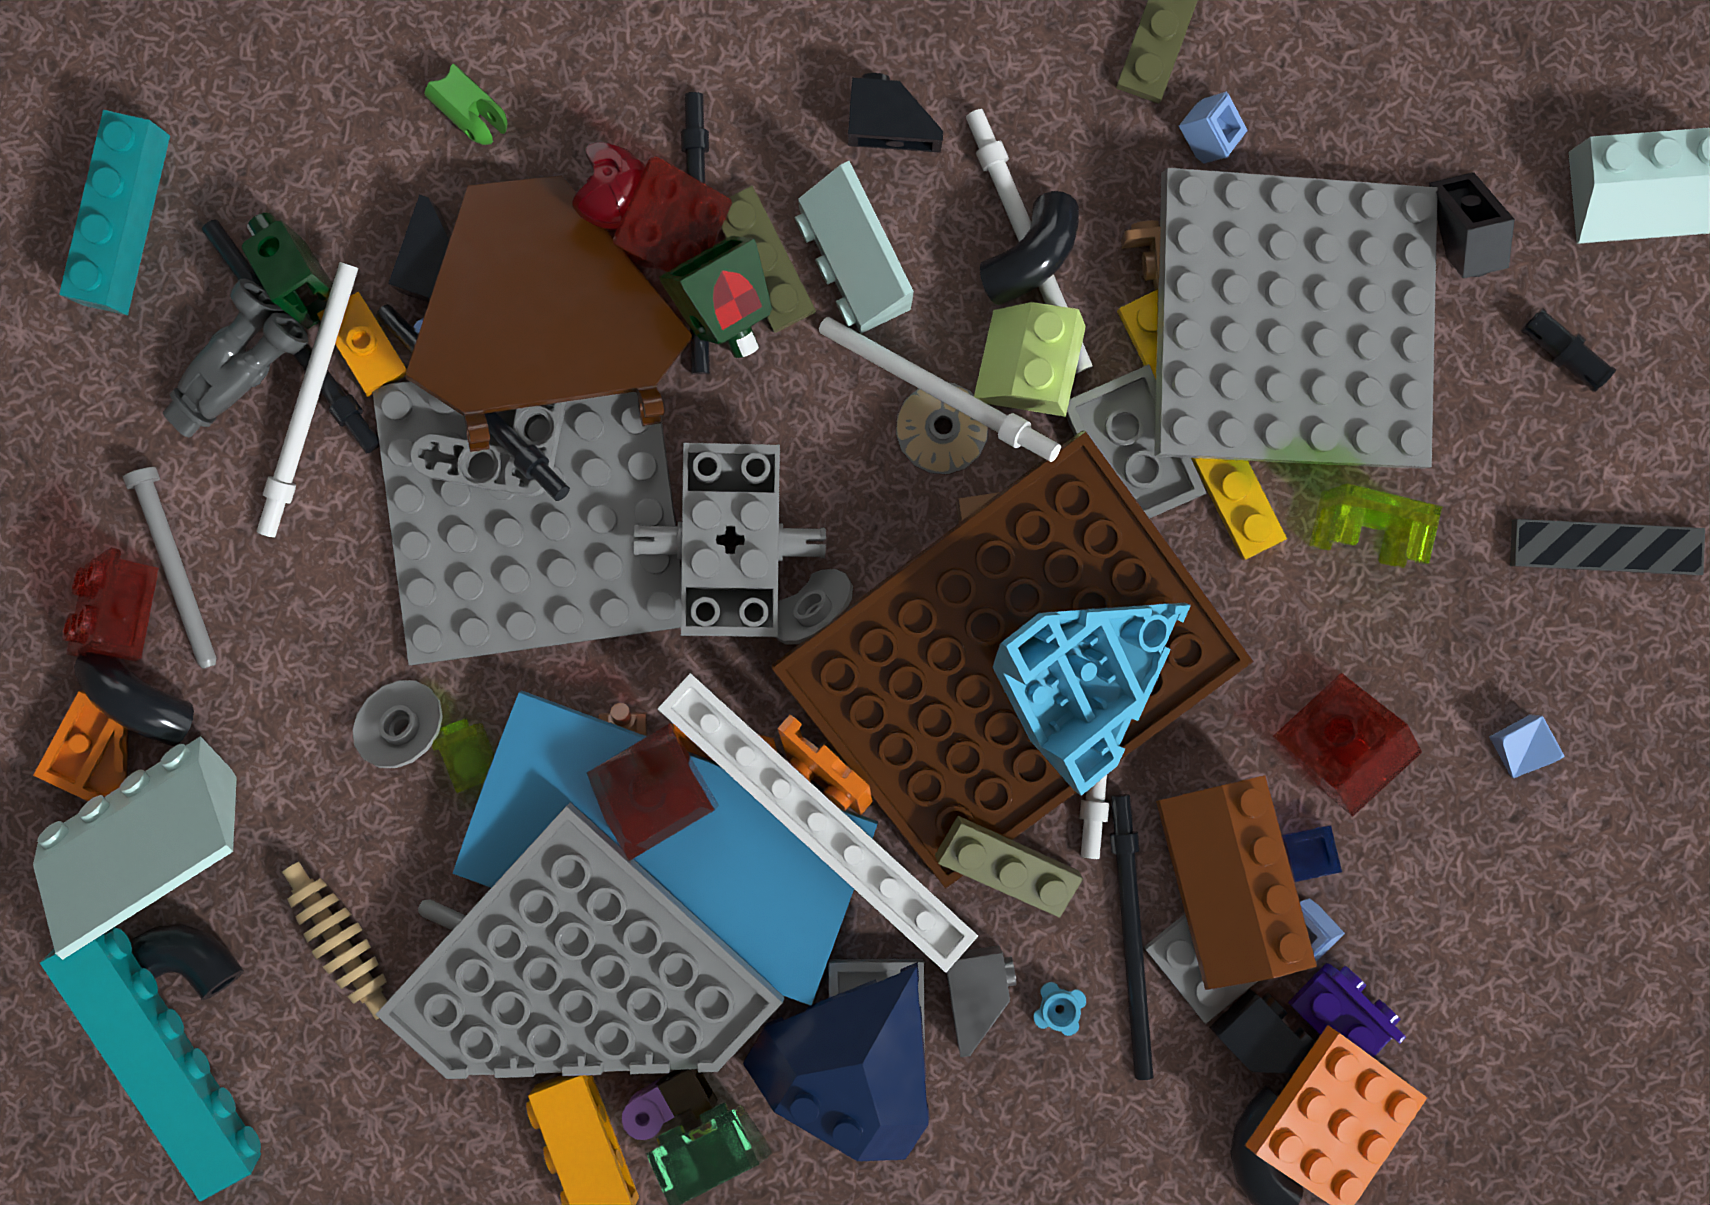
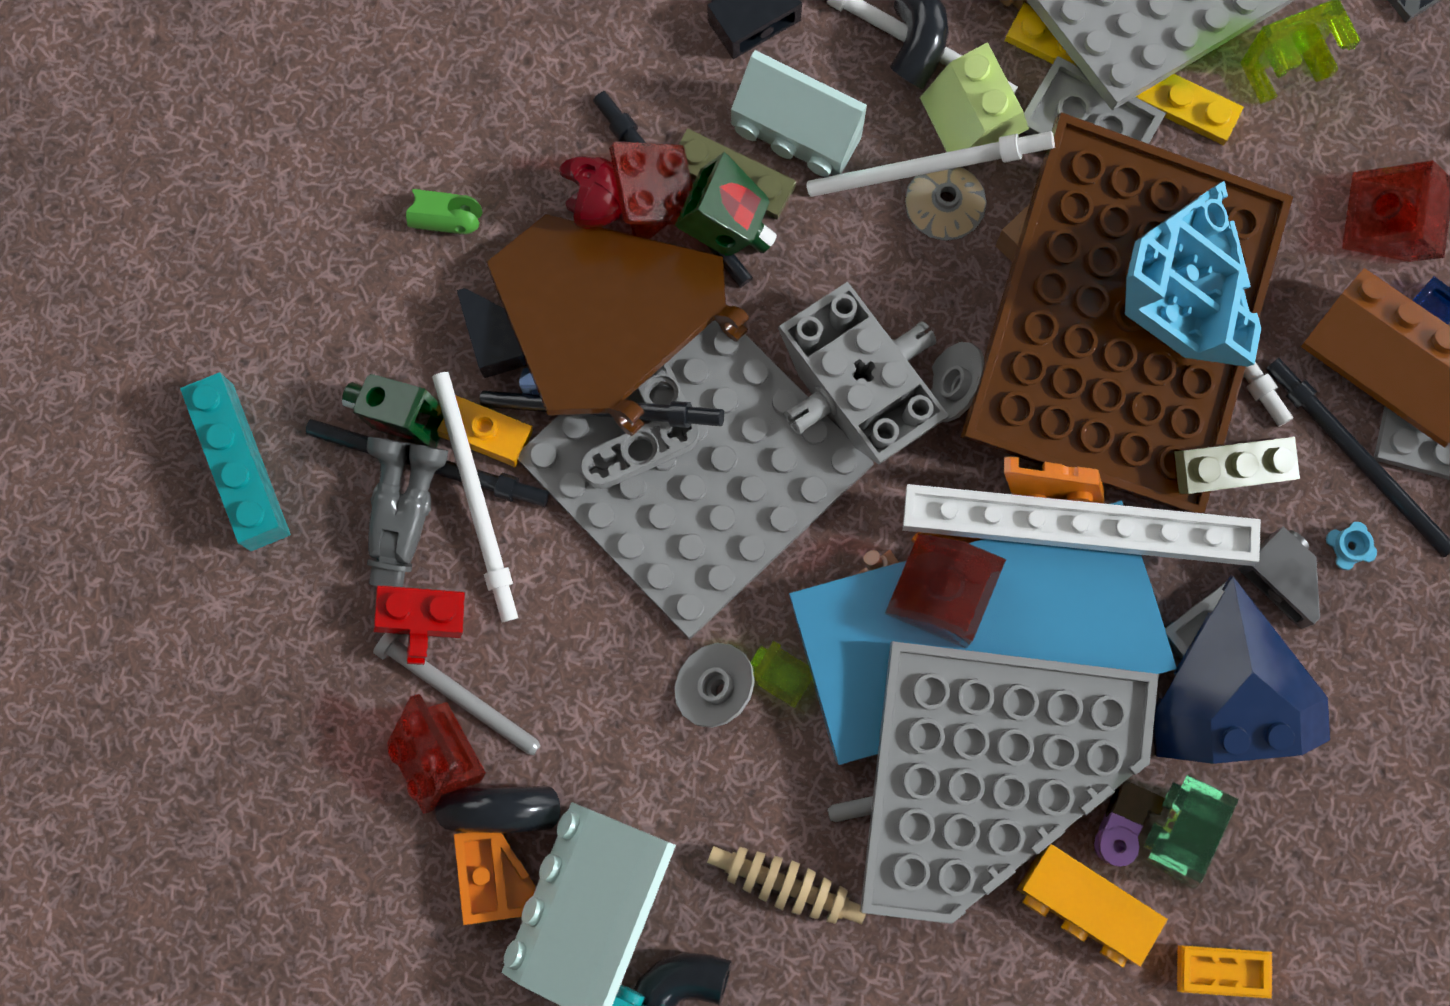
camera: 35 degrees left, 10 degrees down
(183, 473) = (418, 615): none -> red plate

